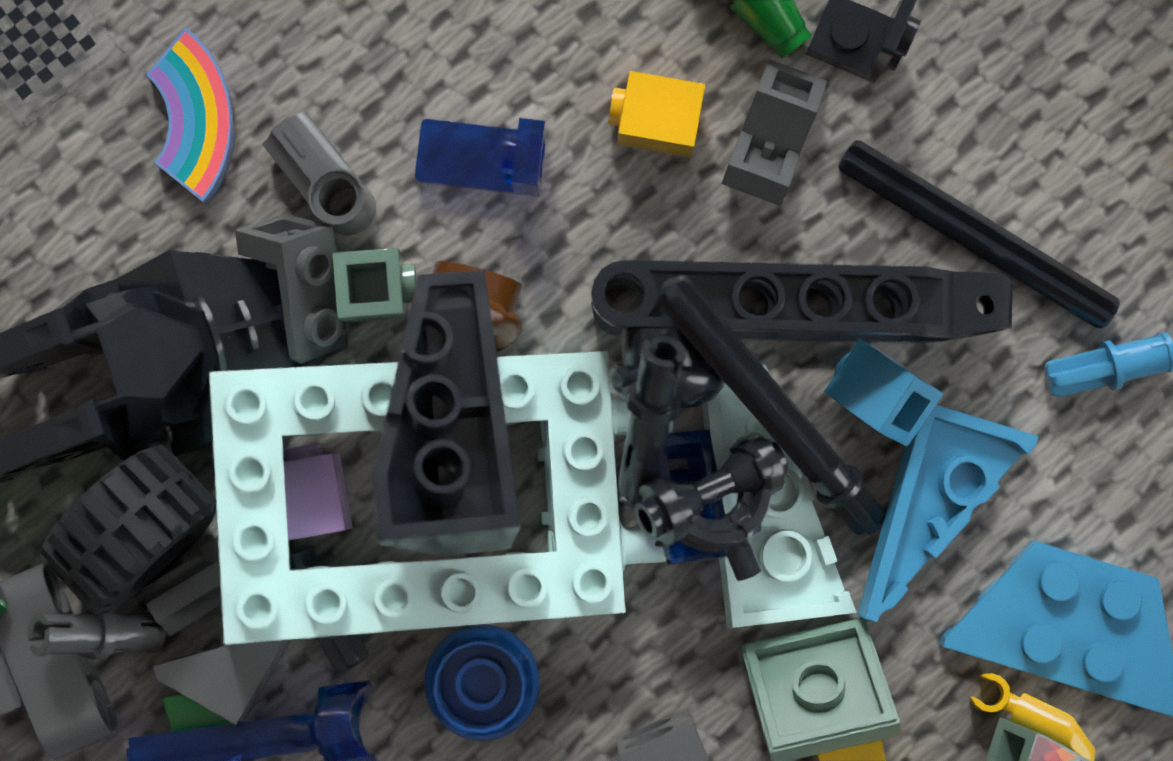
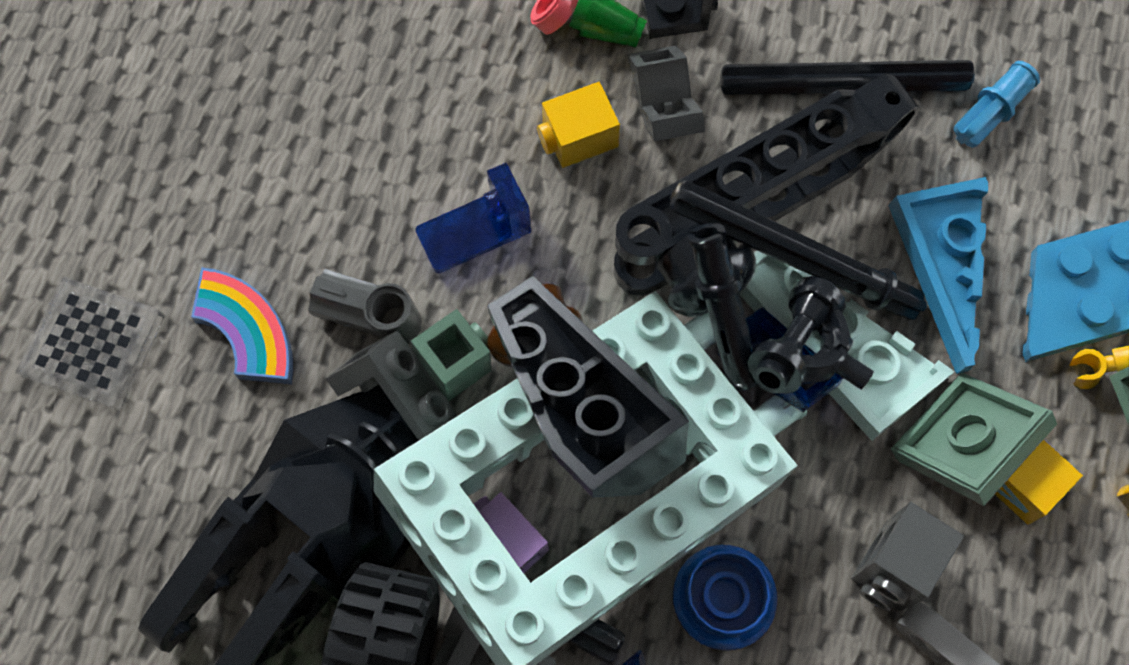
camera: 35 degrees left, 15 degrees down
(882, 392) = (863, 205): dark azure brick -> none

